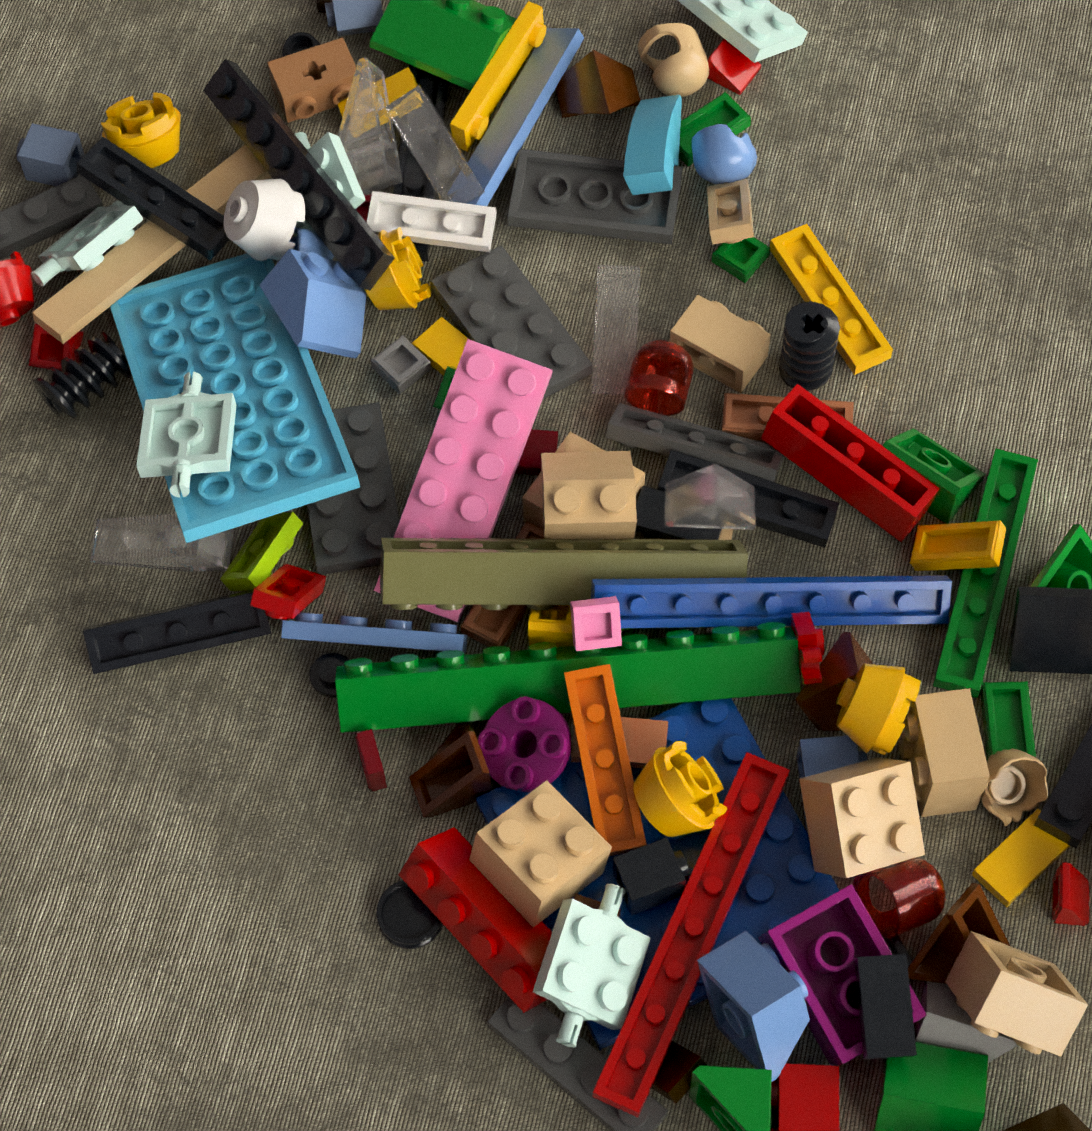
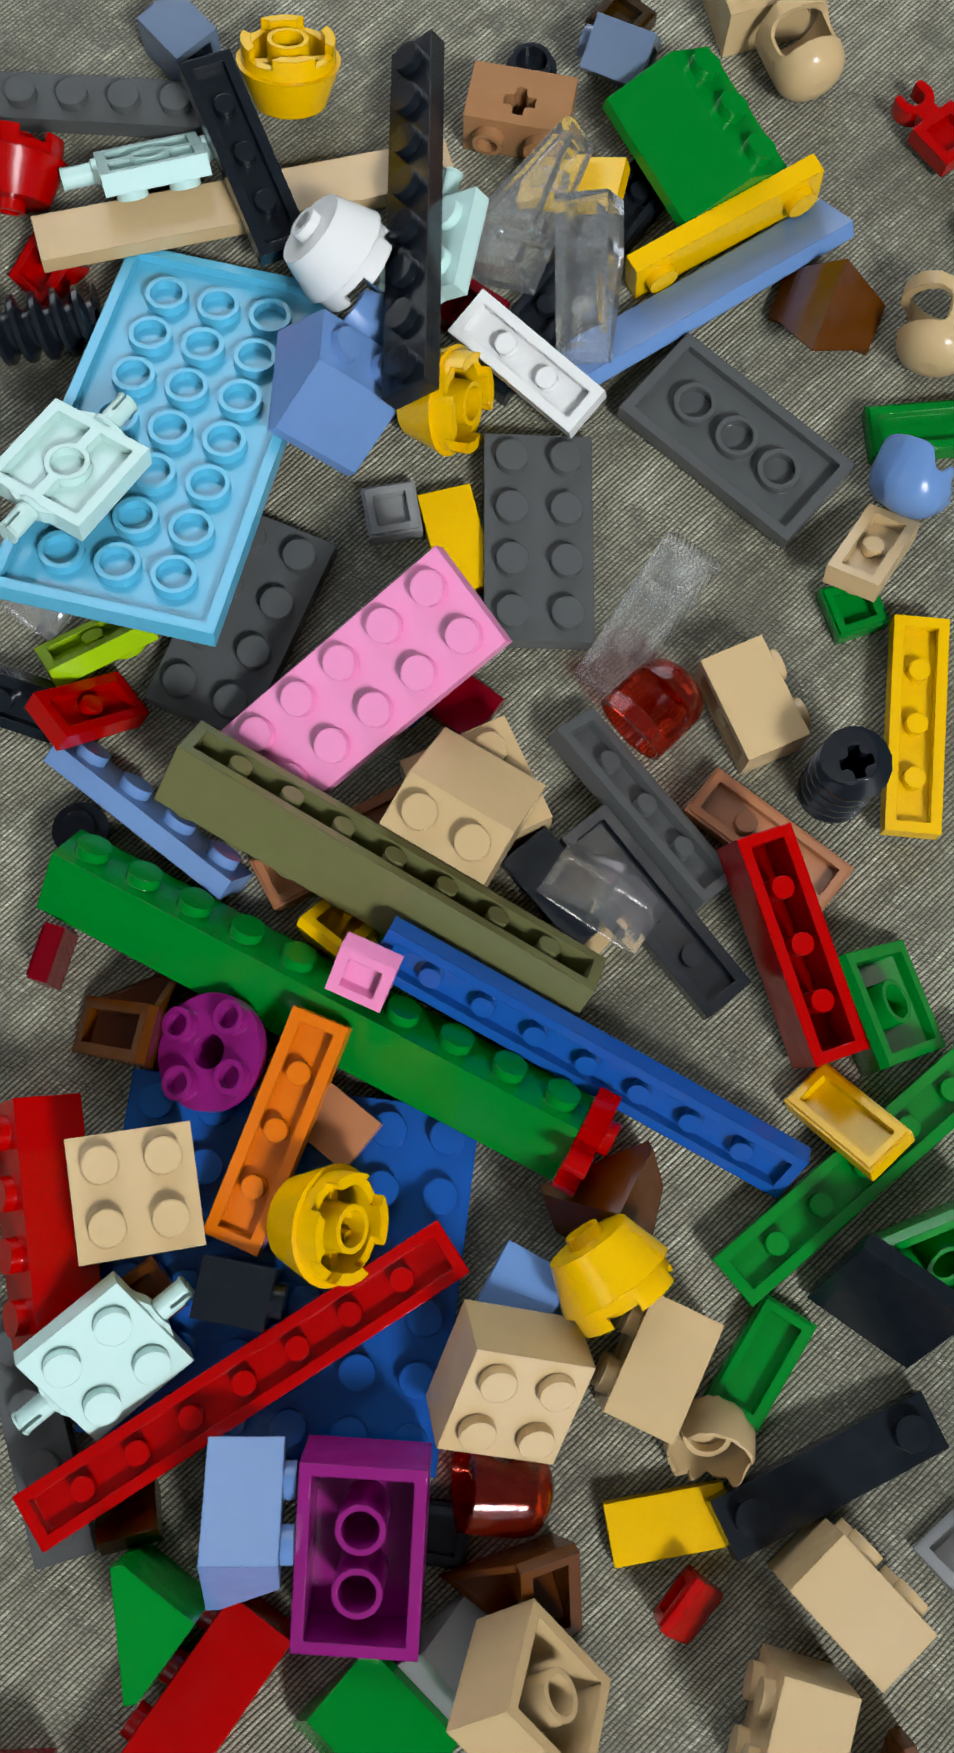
camera: 30 degrees right, 15 degrees up
(653, 145) = (839, 417): medium azure slope -> none
(885, 1006) = (372, 1630): black tile -> none

